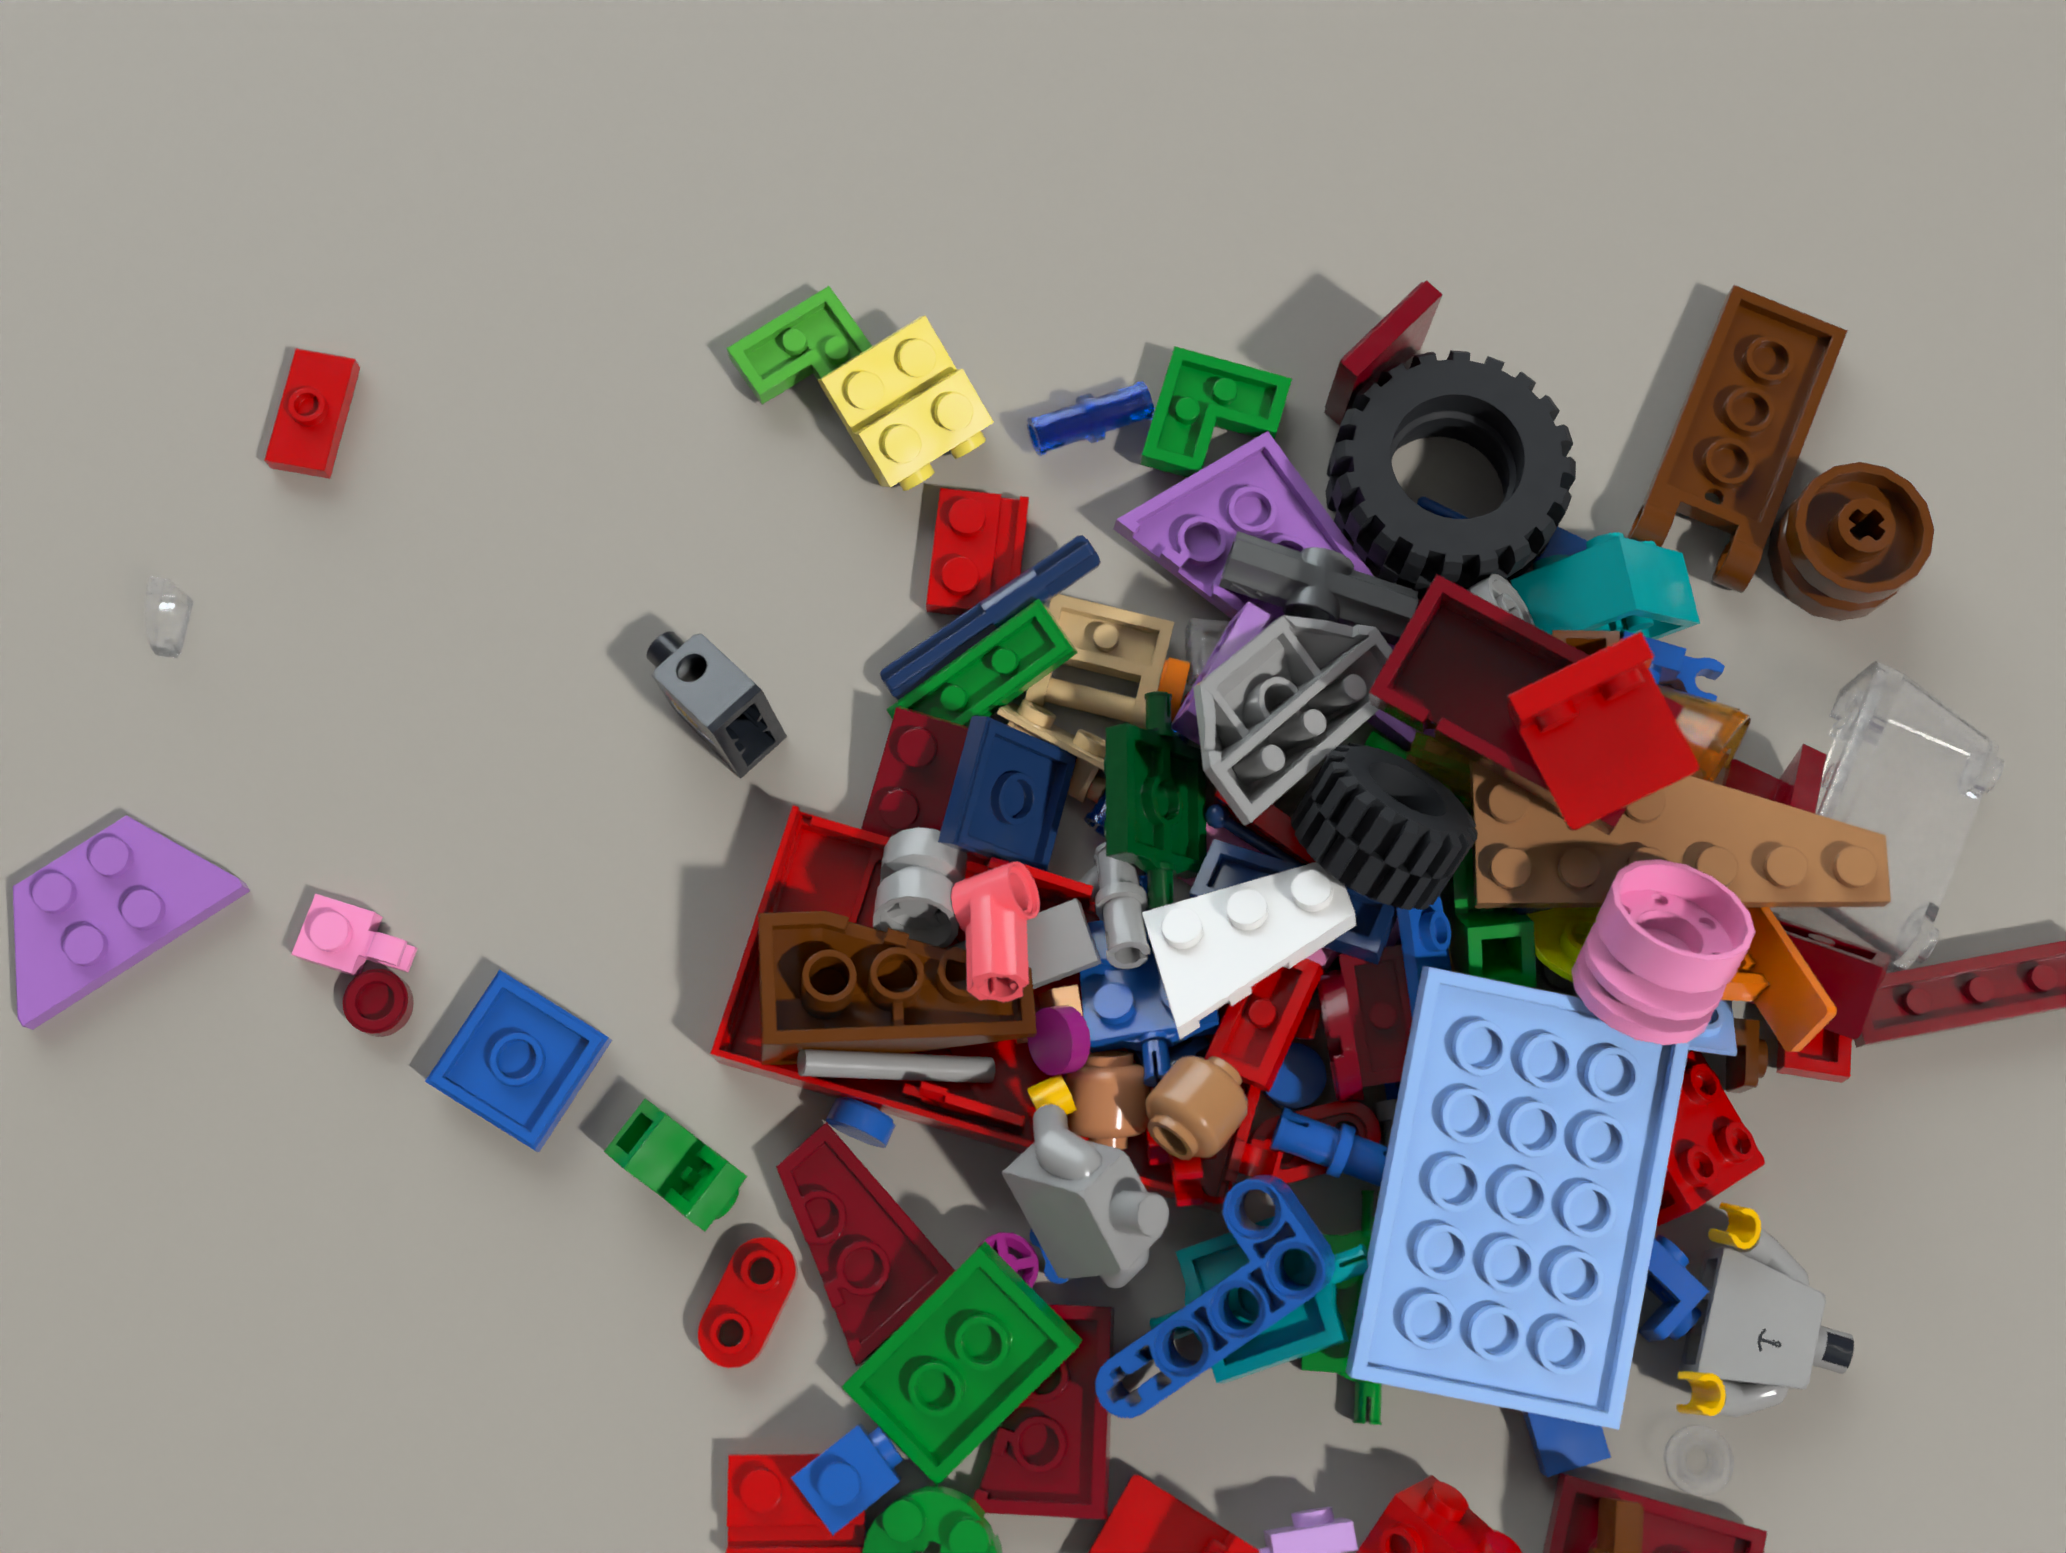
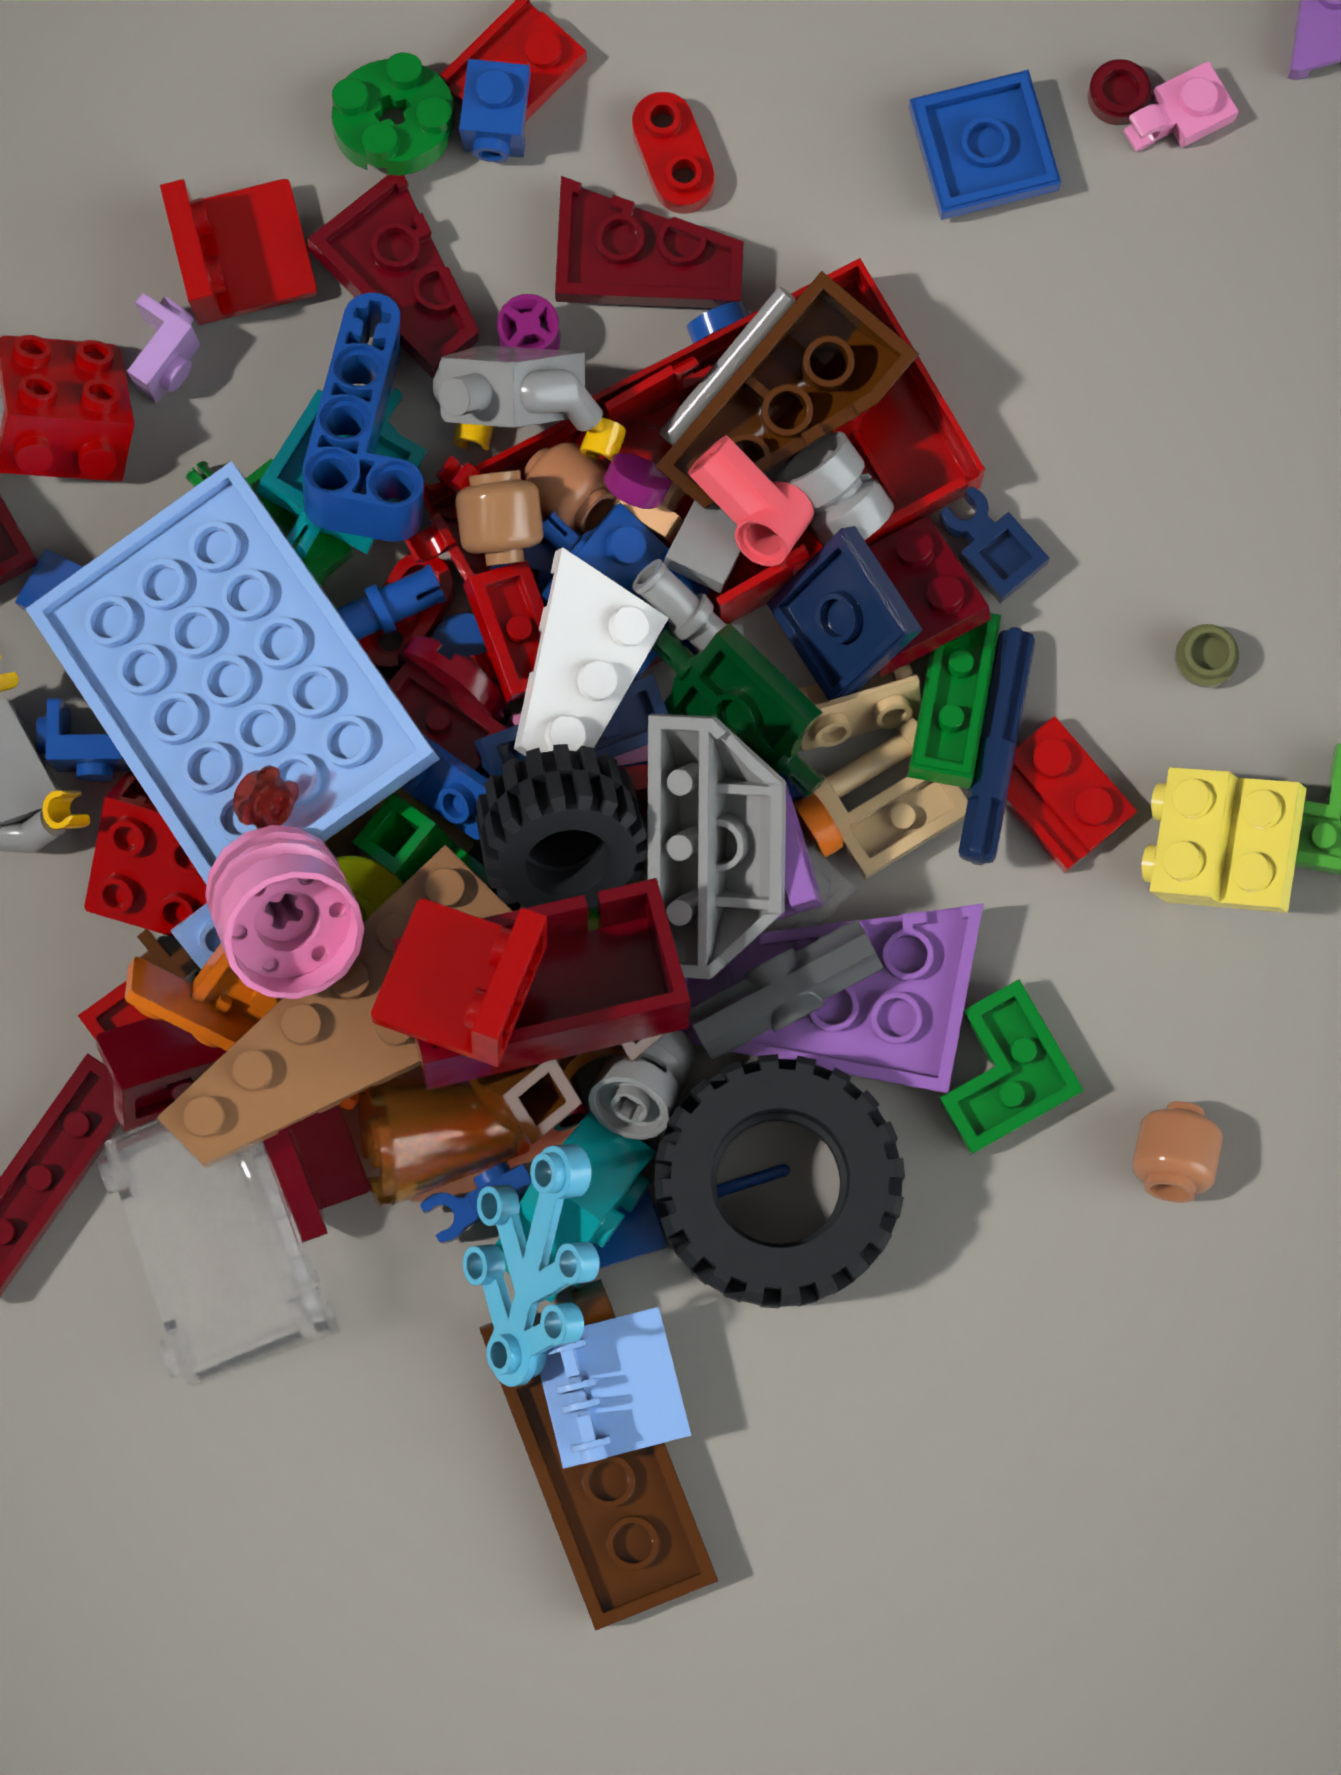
camera: 140 degrees right, 5 degrees up
(676, 1165) = (807, 180): green brick -> none
(716, 699) = (1120, 491): black torso -> none
(776, 544) = (1207, 655): none -> olive plate
(839, 752) = (998, 552): none -> dark blue plate
(961, 1363) = (494, 238): green plate -> none
(1090, 418) = (1088, 975): clear blue pin -> none
(1153, 253) = (1177, 1152): none -> nougat head
(1390, 341) = (923, 1228): dark red tile -> none
(1595, 1054) = (264, 798): none -> clear red plate
(1698, 455) = (614, 1389): none -> light blue hinge
(1742, 539) = (516, 1346): none -> medium azure plant
(1850, 541) = (396, 1447): reddish brown wheel -> none

